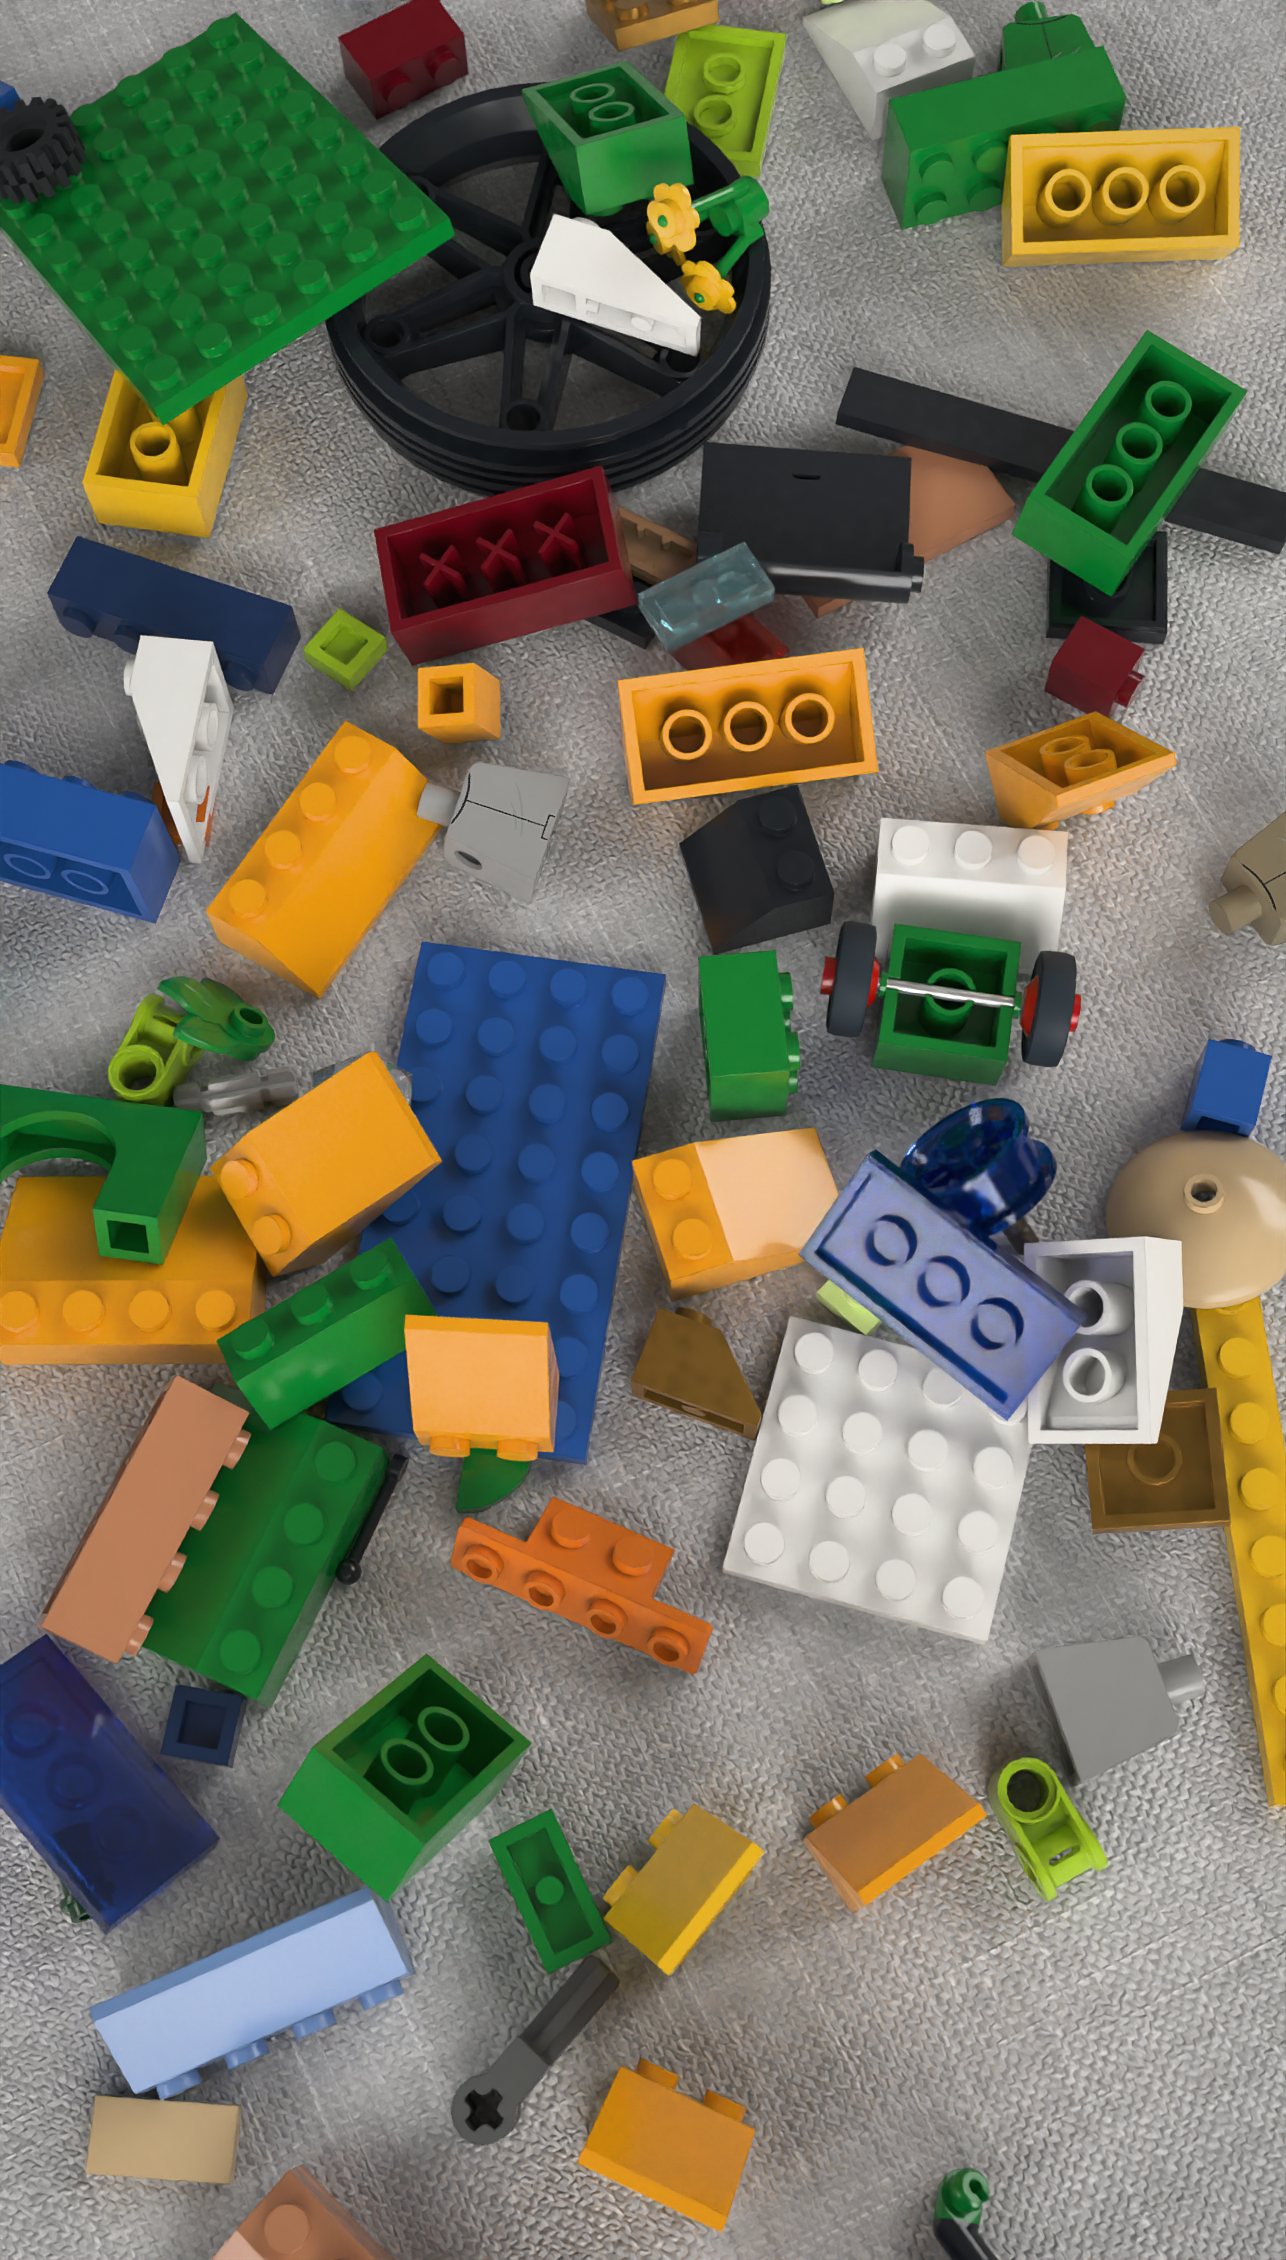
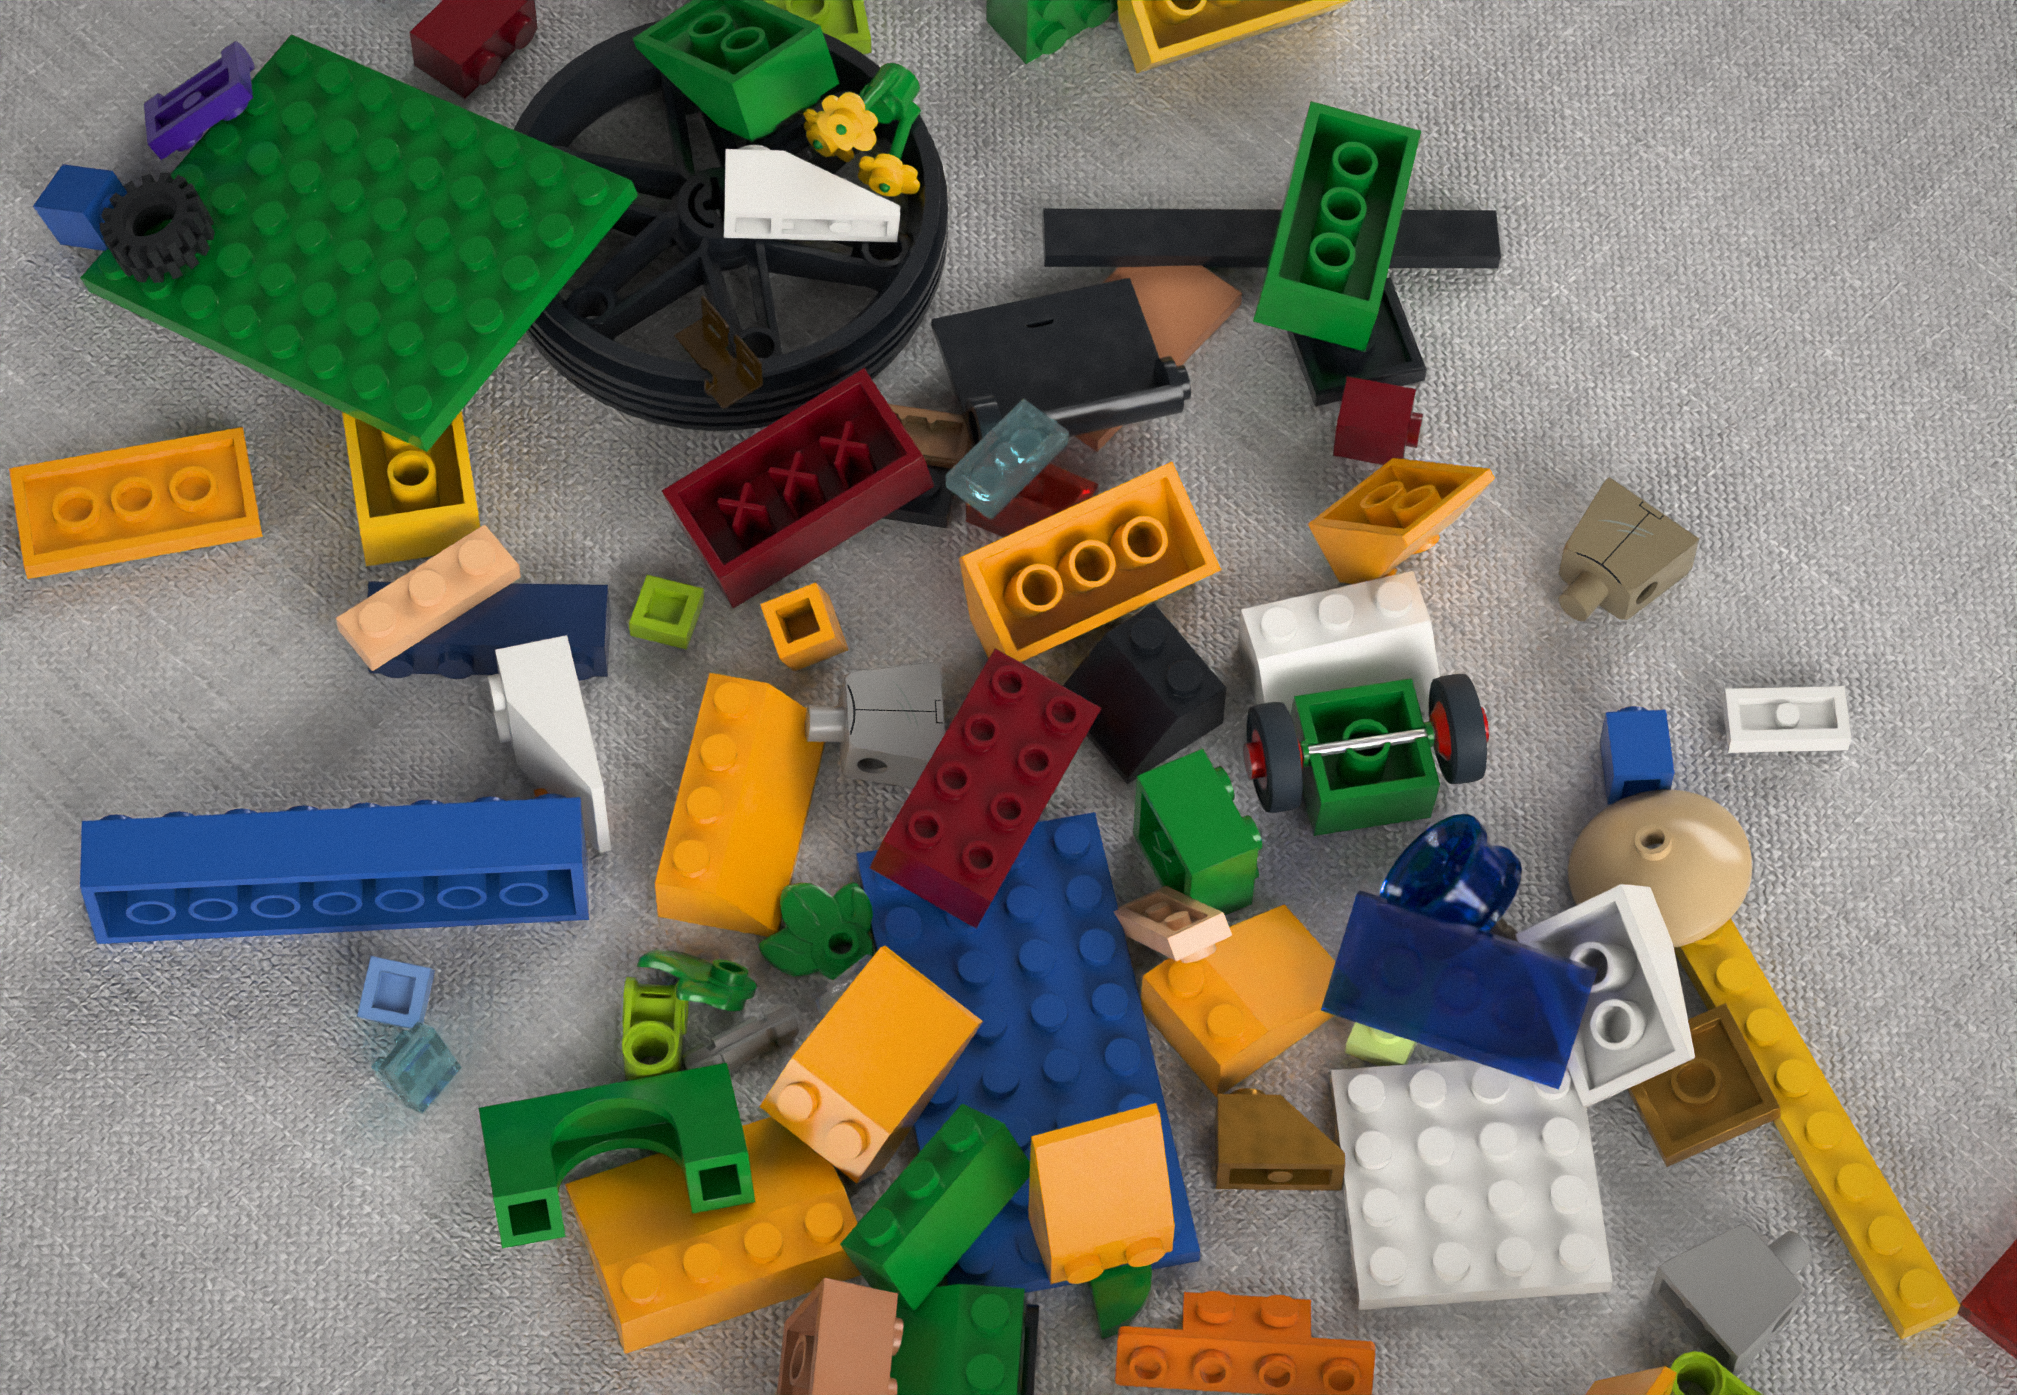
camera: 25 degrees left, 10 degrees down
(119, 567) = (428, 597): none -> light nougat plate
(143, 45) = (200, 102): none -> dark purple plate
(356, 1000) = (816, 926): none -> green plate
(468, 411) = (729, 377): none -> dark brown piece
(554, 918) = (984, 788): none -> dark red brick
(680, 1120) = (1174, 924): none -> light nougat plate

